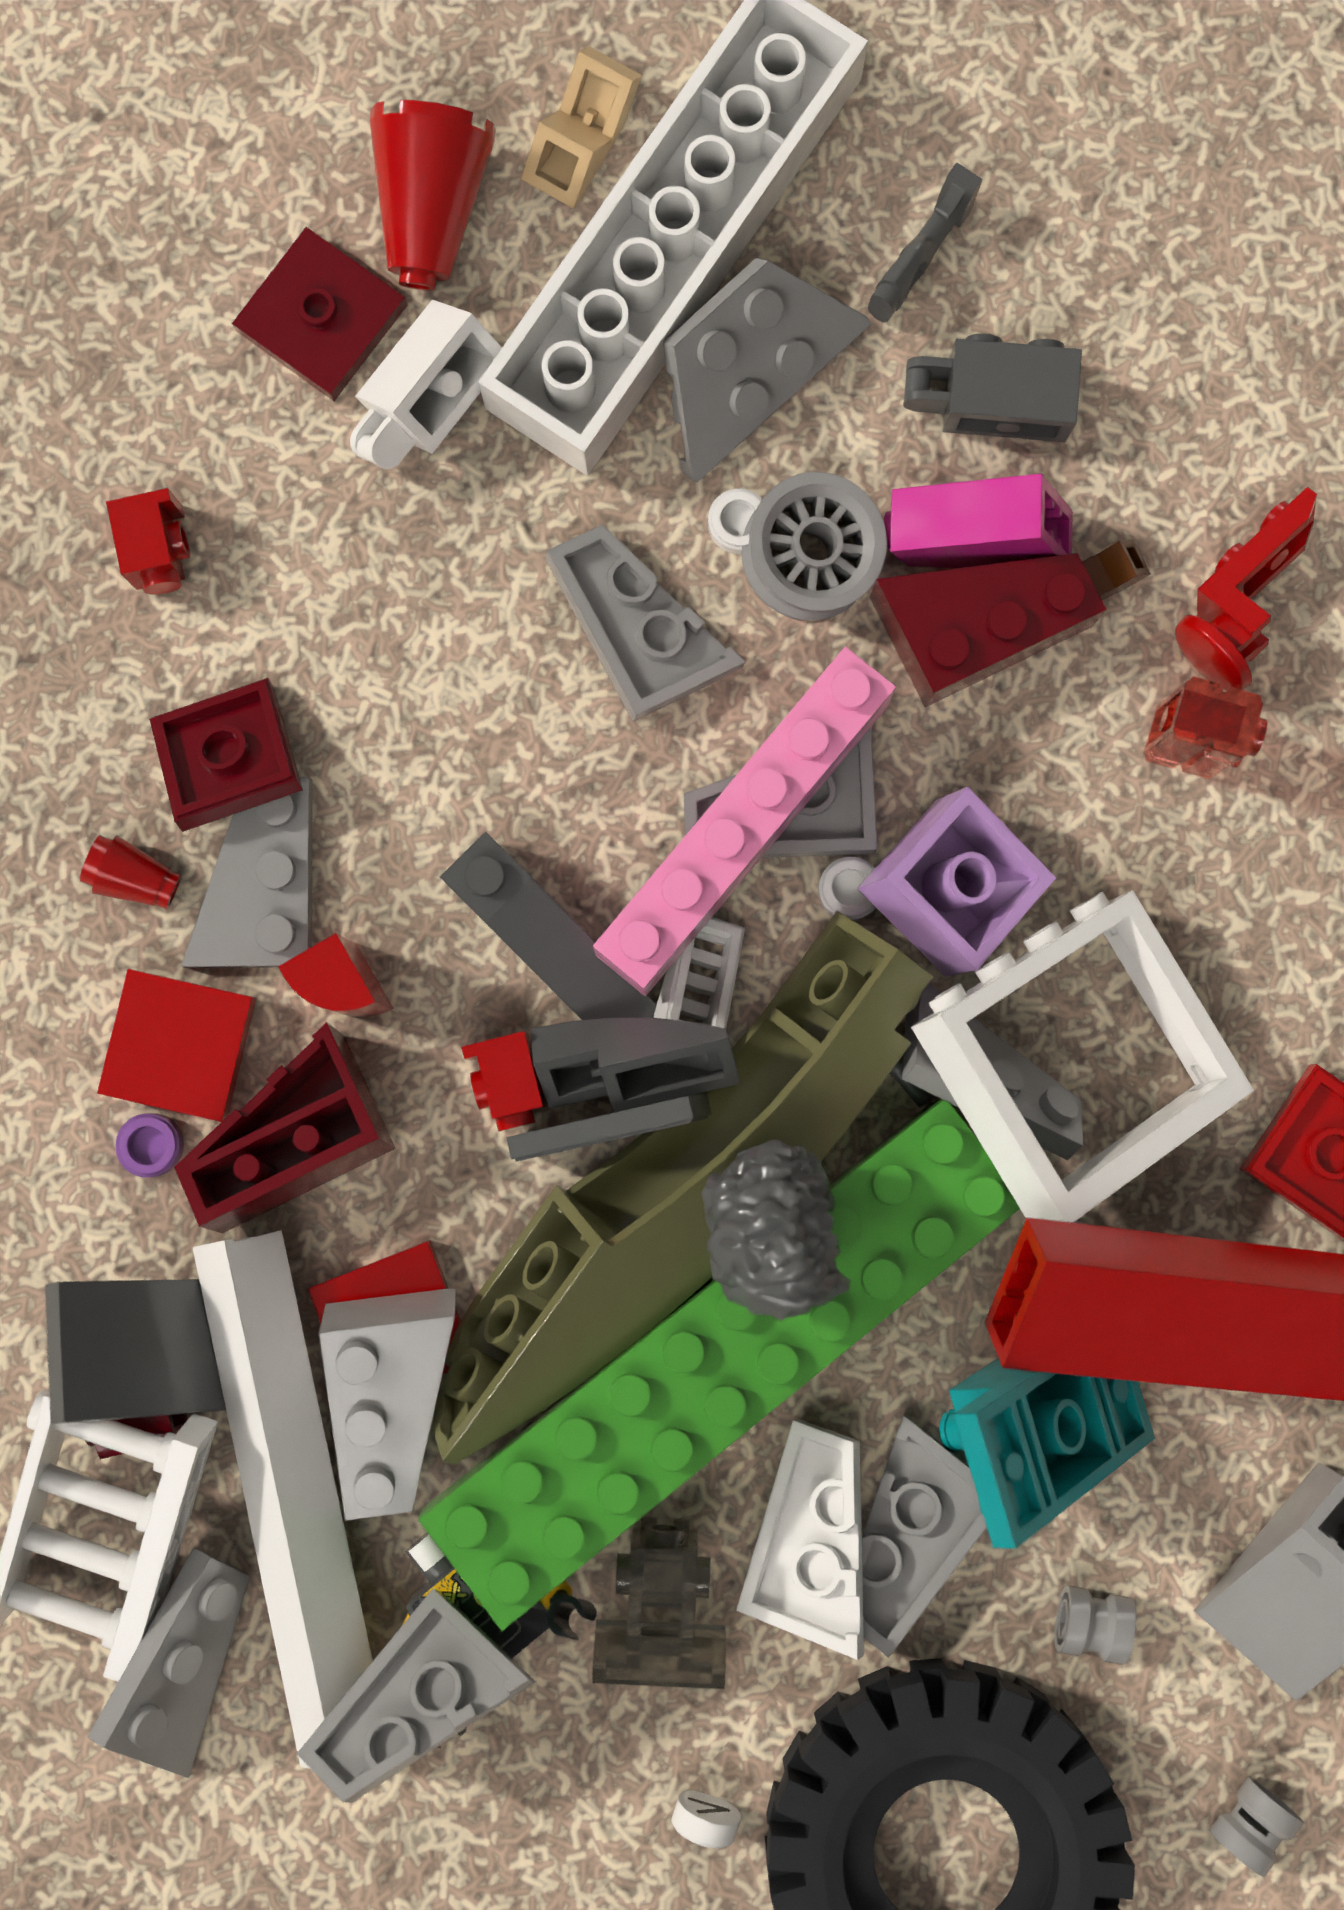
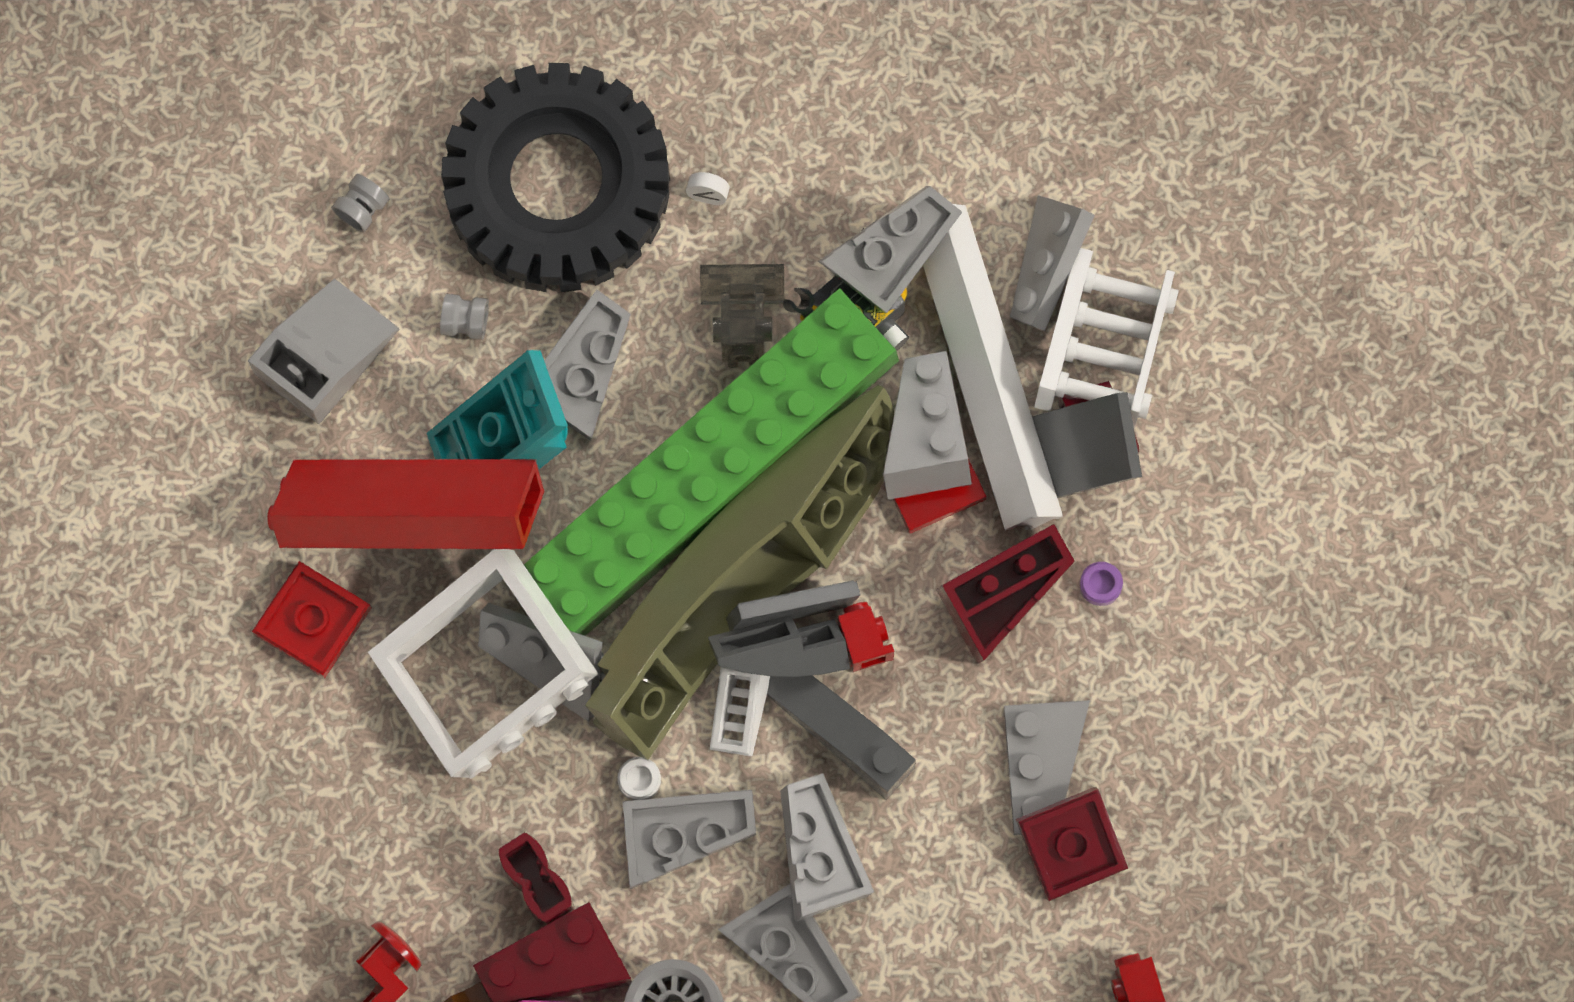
camera: 175 degrees right, 10 degrees down
(128, 873) = (1131, 760): red cone -> none
(176, 1045) = (1087, 647): red tile -> none
(336, 978) = (979, 688): red brick -> none
(592, 761) = (819, 850): none -> light grey wing
(744, 821) = (713, 806): bright pink brick -> none
(773, 1231) = (683, 531): dark grey hair -> none
(810, 1544) = (648, 356): white wing -> none
(957, 883) = (568, 779): lavender slope -> none
(999, 722) = (531, 873): none -> dark red brick
(1205, 728) = (403, 888): clear red brick -> none

